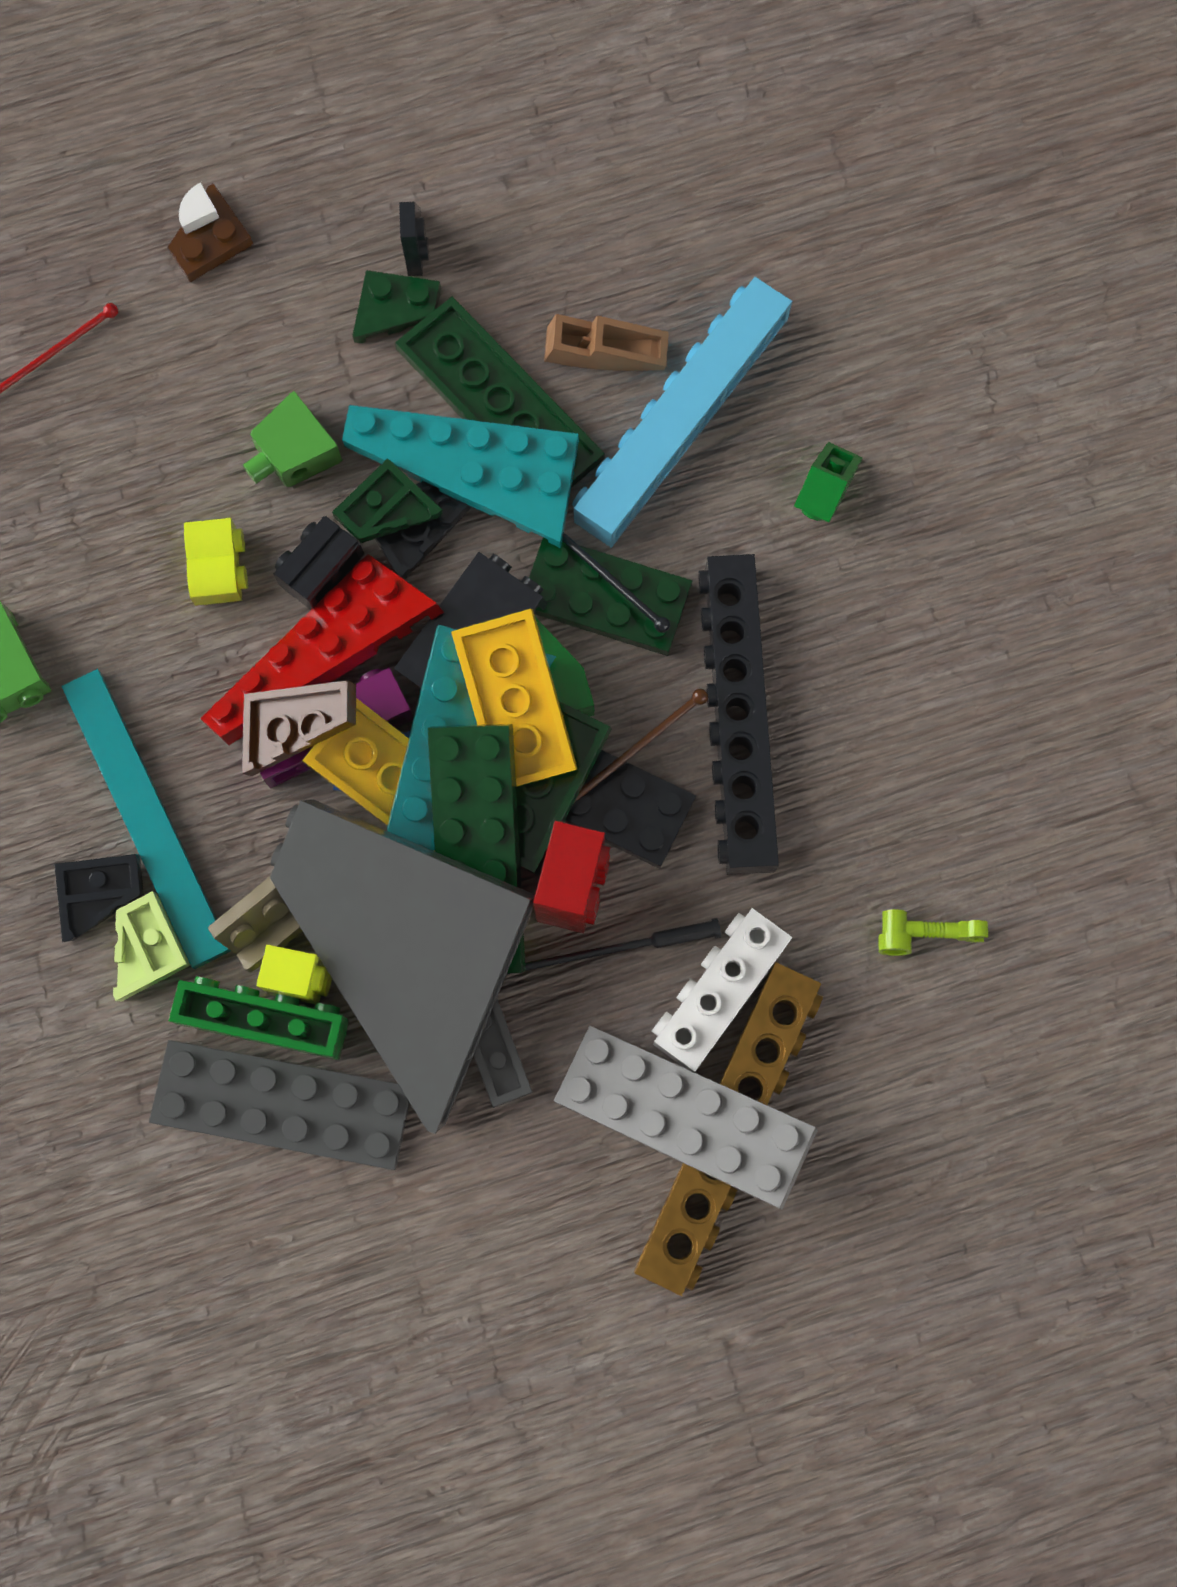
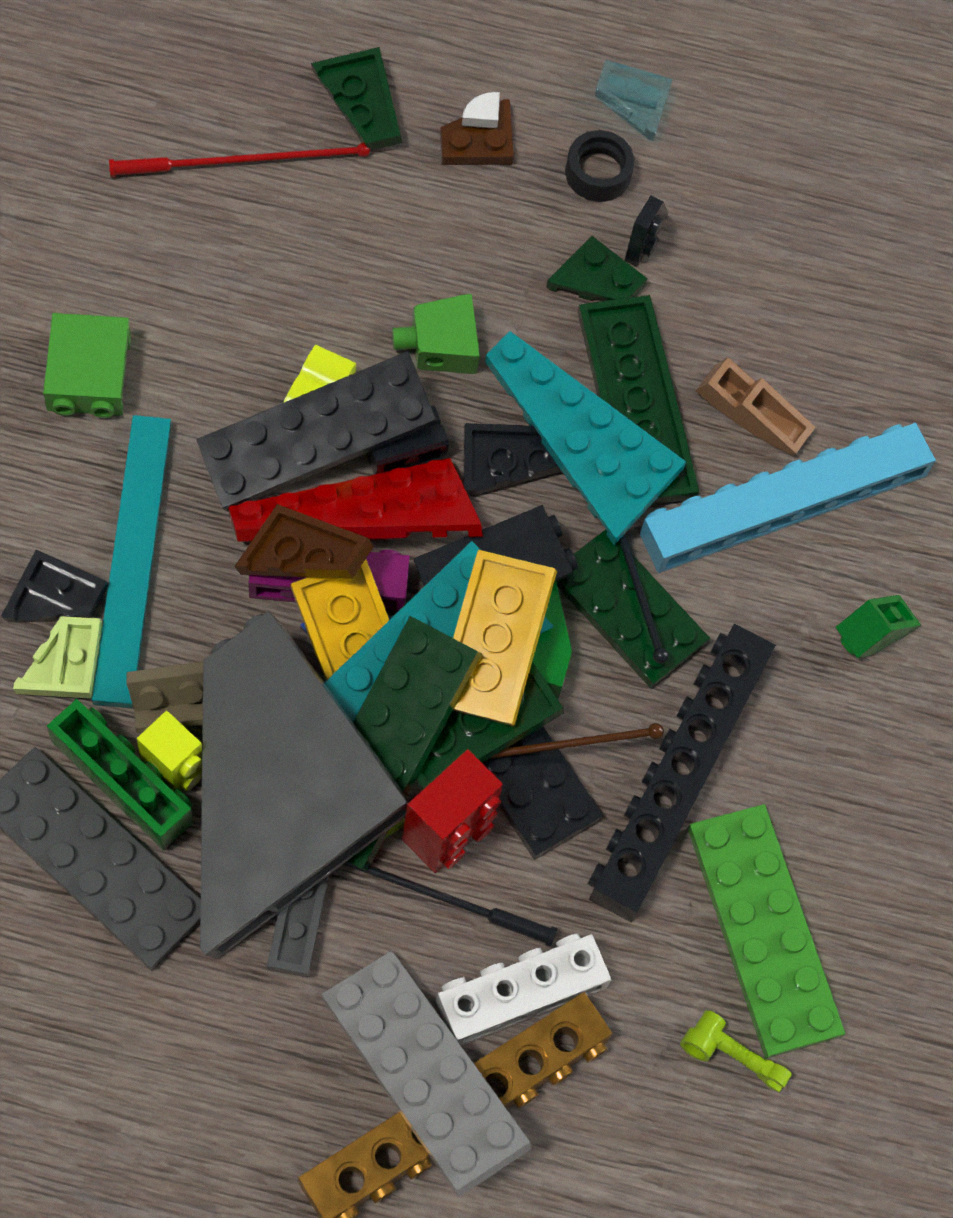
camera: 20 degrees right, 10 degrees down
(78, 258) = (362, 94): none -> dark green wing
(236, 602) = (316, 431): none -> black plate
(323, 113) = (634, 95): none -> clear light blue wing
(327, 174) = (604, 143): none -> black tyre
(385, 505) = (488, 425): dark green wing -> none
(891, 810) = (765, 931): none -> bright green plate

